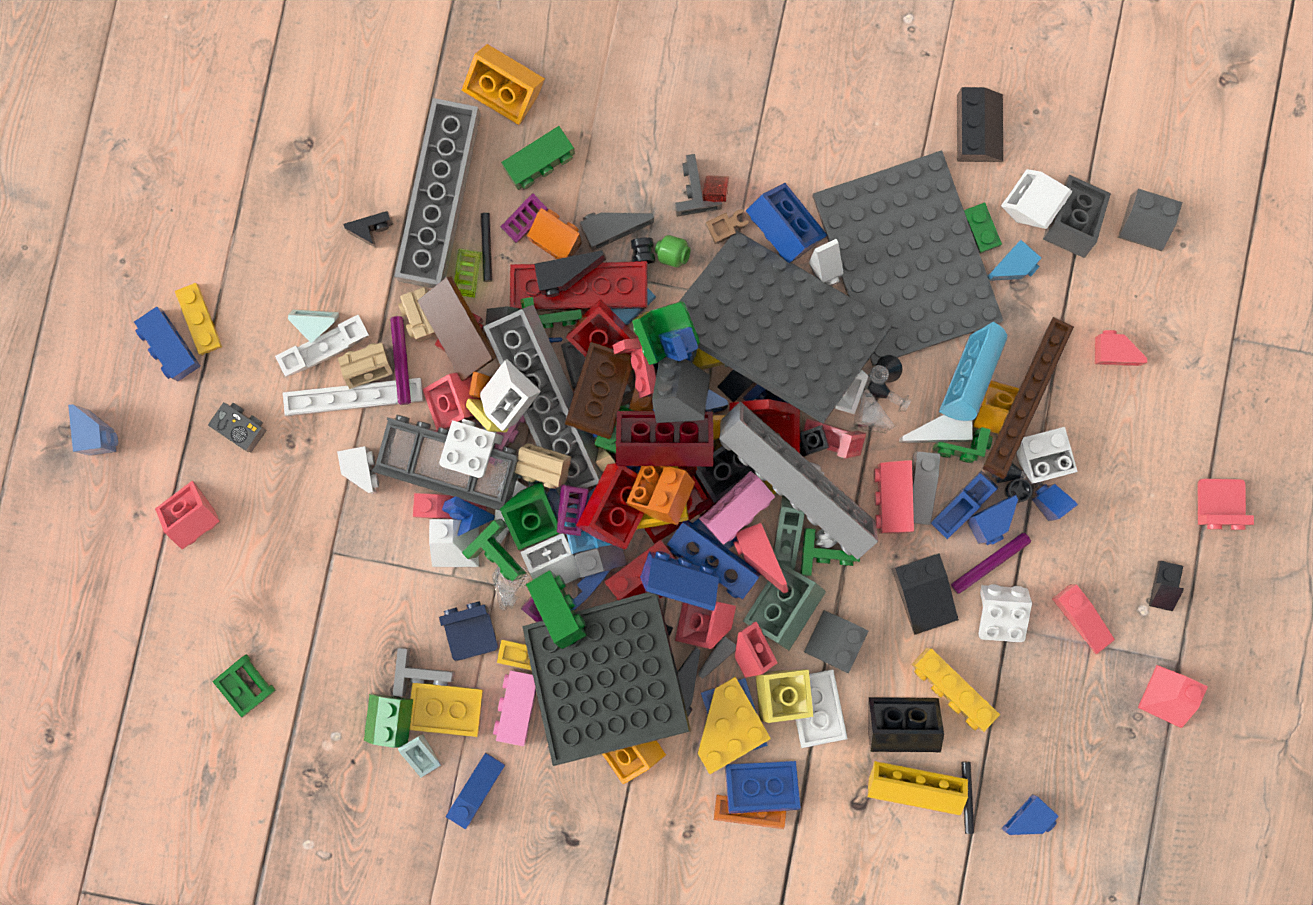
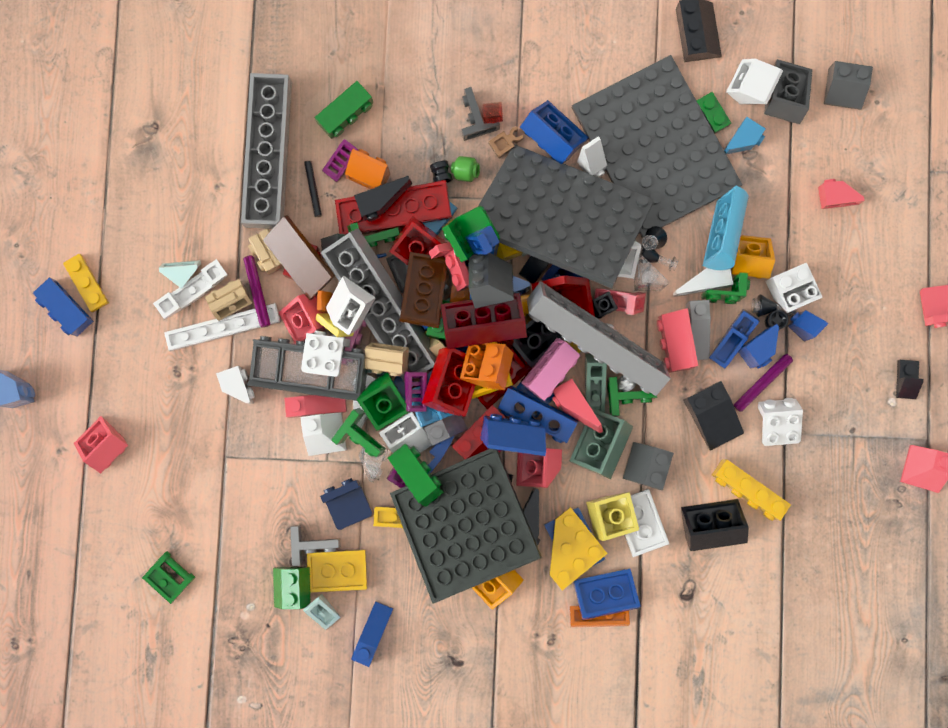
camera: 10 degrees left, 0 degrees up
(237, 427) = (130, 366): dark grey brick -> none
(363, 227) = (209, 187): black slope -> none
(468, 253) = (306, 196): clear neon green slope -> none
(469, 514) = (332, 408): blue slope -> none
(502, 83) = (305, 54): light orange slope -> none
(515, 708) = (394, 561): bright pink brick -> none
(608, 227) = (410, 157): dark grey slope -> none
(721, 652) = (555, 489): dark grey slope -> none
(753, 652) = (582, 484): coral slope -> none
(917, 788) = (733, 575): yellow brick -> none
(968, 808) = (774, 576): black bar -> none
(1028, 398) = (773, 244): reddish brown tile -> none
(1031, 818) = (829, 585): blue slope -> none
(1083, 617) = (845, 414): coral slope -> none

